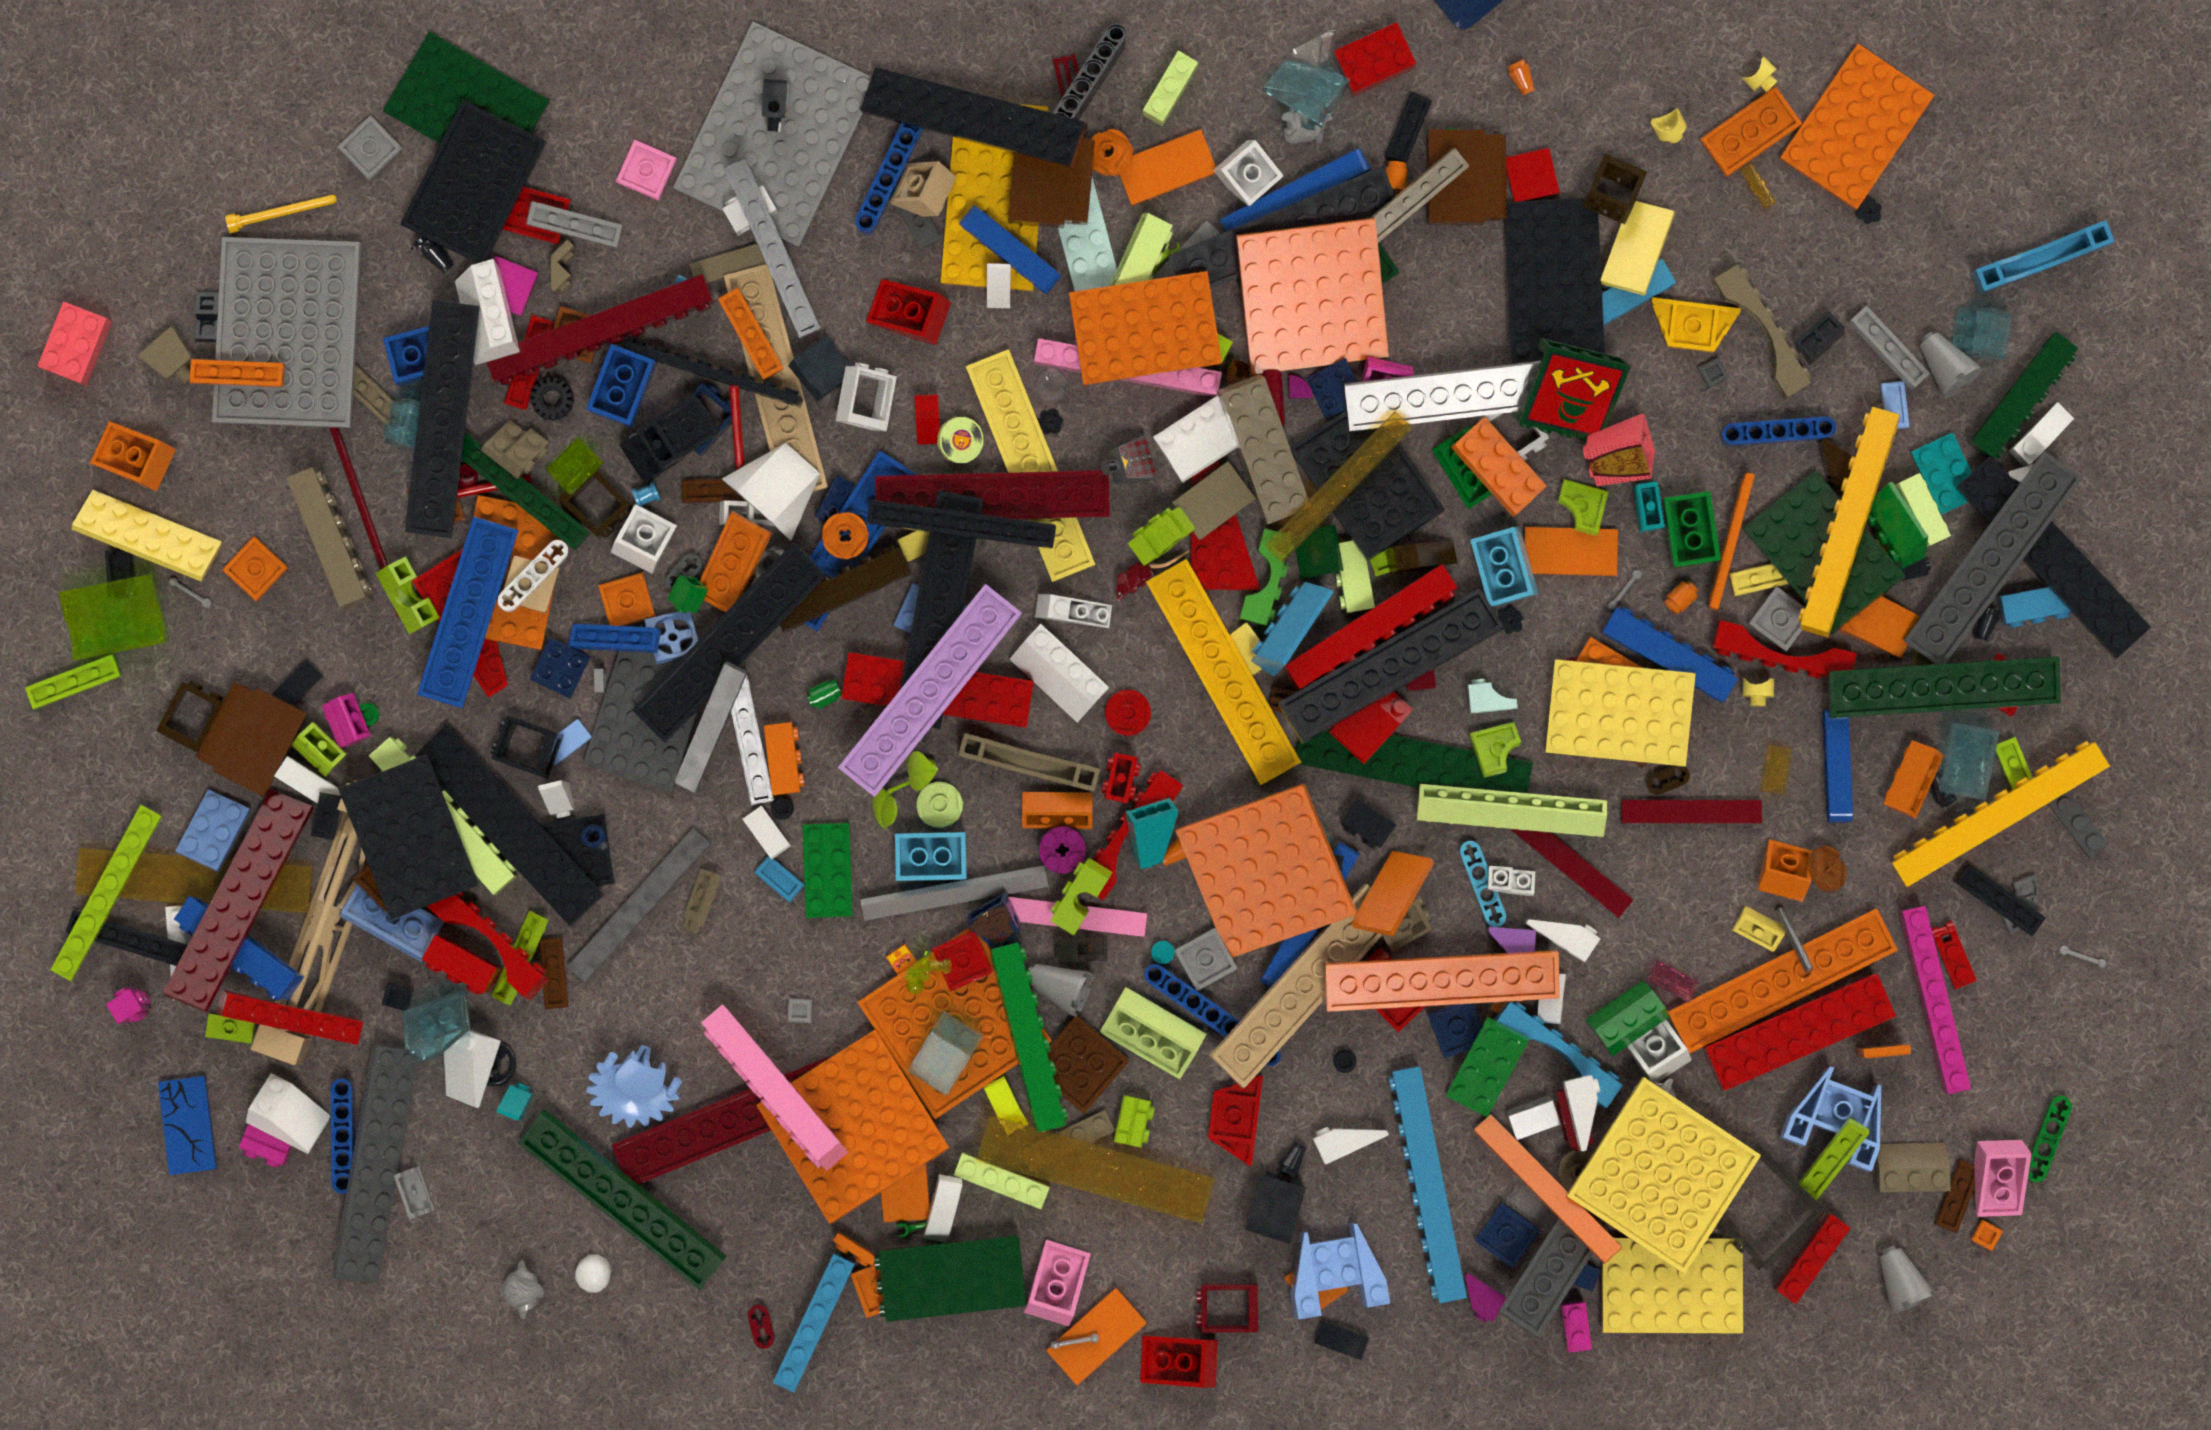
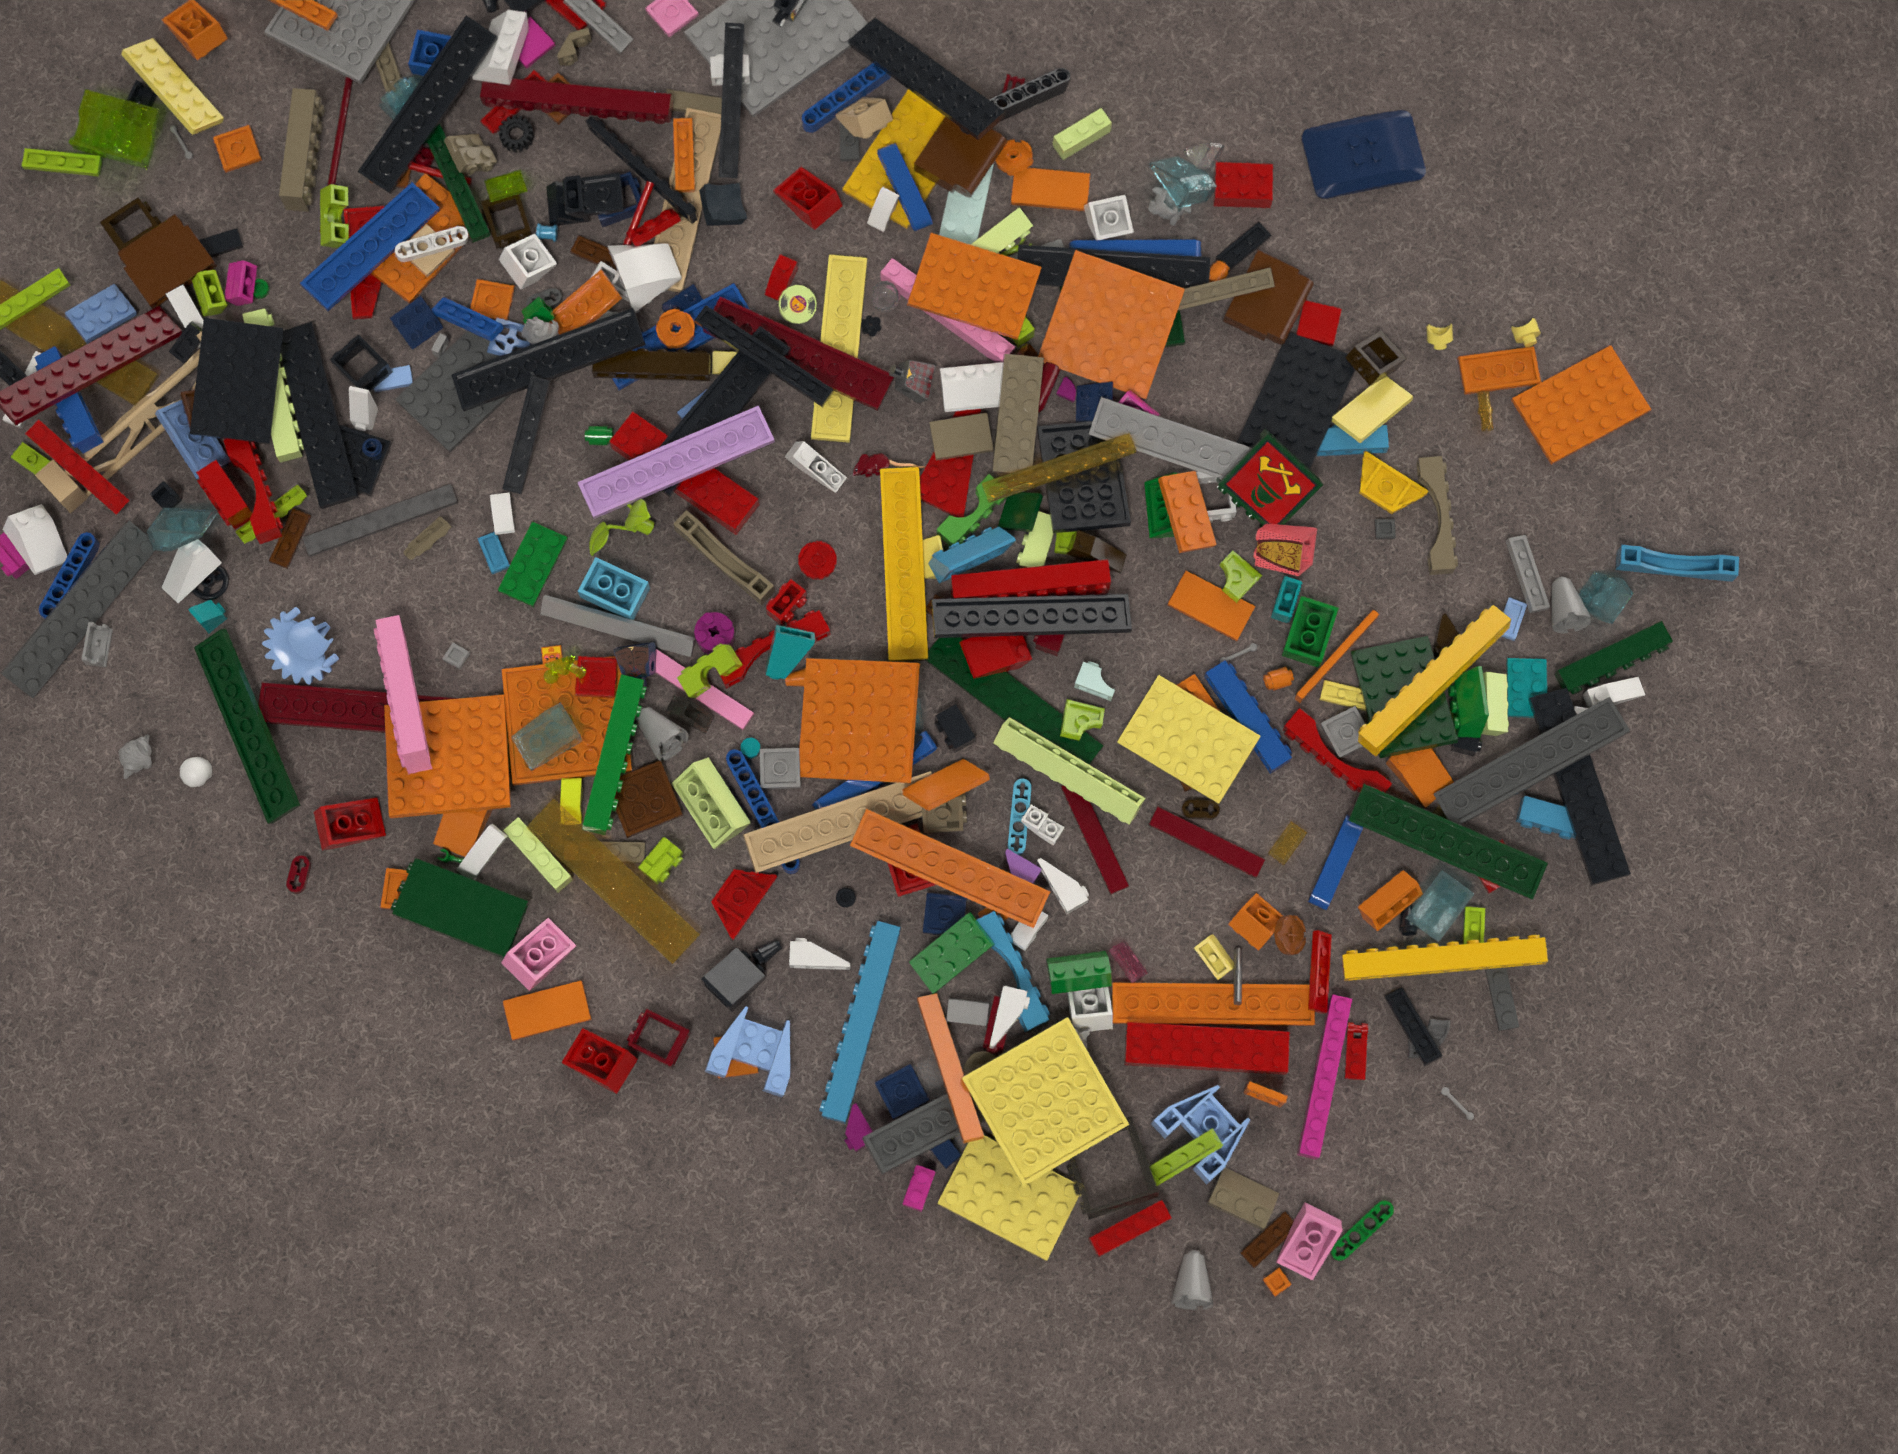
camera: 25 degrees right, 10 degrees down
(621, 386) = (570, 147): blue brick -> none
(703, 616) = (538, 330): none -> light grey hair
(710, 726) = (501, 413): flat silver tile -> none
(761, 434) = (653, 227): none -> red plate
(782, 808) = (524, 502): black plate -> none
(783, 758) = (543, 466): orange brick -> none
(786, 1247) = (349, 823): none -> red slope
(814, 1322) = (355, 876): dark azure arch -> none
(846, 1244) = (395, 844): orange plate -> none
(882, 403) = (730, 253): white window -> none
(939, 812) = (641, 563): yellowish green tile -> none
(1056, 1344) = (544, 1009): light grey hinge -> none
(1057, 810) = (724, 600): orange brick -> none
(1059, 673) = (781, 505): white slope -> none
(1160, 534) = (908, 439): lime brick -> none
(1341, 1340) = (732, 1108): black slope -> none
(1504, 566) = (1154, 589): medium azure brick -> none
(1511, 613) = (1143, 629): black plant -> none
(1521, 76) = (1346, 249): orange cone -> none
(1758, 692) = (1302, 776): light yellow piece -> none
(1788, 427) = (1406, 585): blue beam -> none
(1819, 337) = (1478, 541): black hinge -> none
(1873, 216) = (1564, 465): black plant -> none
(1876, 891) = (1319, 972): none -> red tile
(1986, 623) = (1504, 812): black cone -> none

